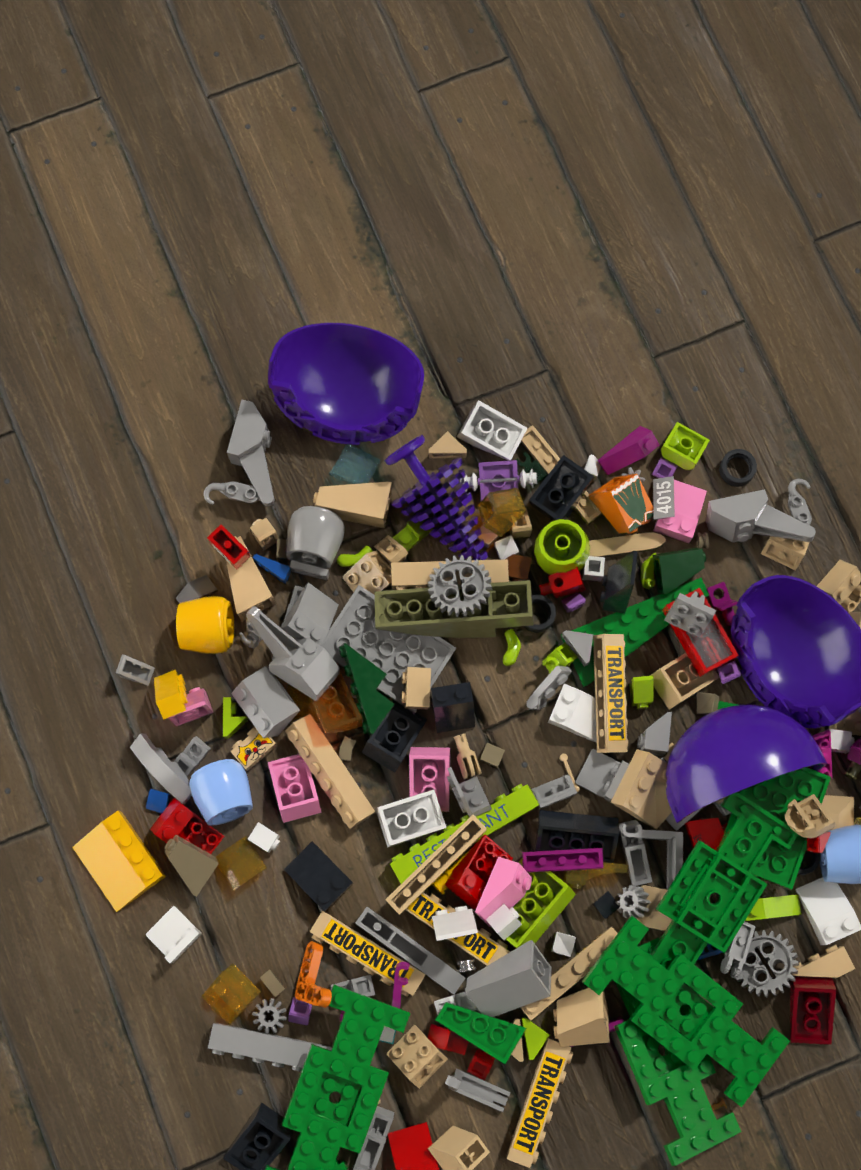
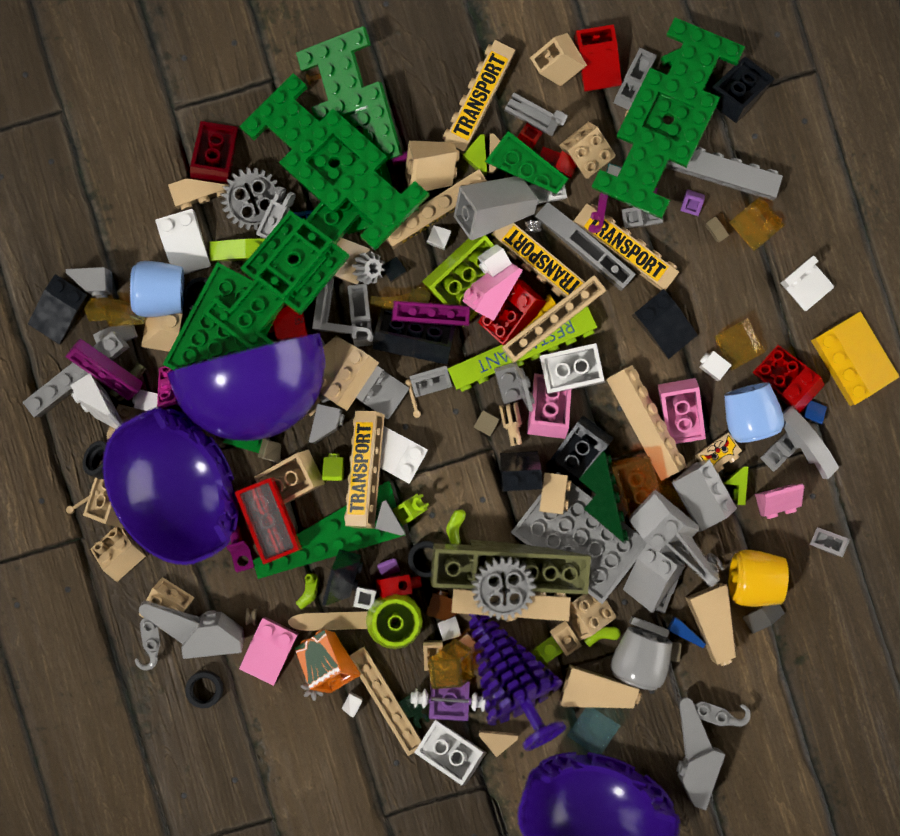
camera: 175 degrees left, 10 degrees up
(170, 694) = (798, 510): yellow brick -> none
(191, 863) = (787, 347): dark tan slope -> none
(228, 546) = (731, 651): red brick -> none
(262, 1016) = (729, 202): light grey gear -> none
(264, 533) = (692, 669): tan slope -> none
(306, 988) = (686, 222): orange beam -> none
(346, 749) = (627, 443): dark tan piece -> none
(454, 924) = (543, 260): white slope -> none
(547, 687) = (425, 481): light grey hinge -> none
(561, 490) = (387, 681): black slope -> none
(629, 450) = (312, 718): magenta slope -> none
(663, 497) = (285, 663): light grey sticker -> none
(664, 468) = (278, 696): medium lavender slope -> none
(677, 567) = (281, 590): dark green slope -> none
(684, 447) = (255, 716): lime slope -> none
(690, 614) = (277, 535): light grey plate -> none
(729, 672) = (244, 478): medium lavender slope -> none
(808, 817) = (192, 325): tan slope -> none
(818, 843) = (186, 304): red slope -> none

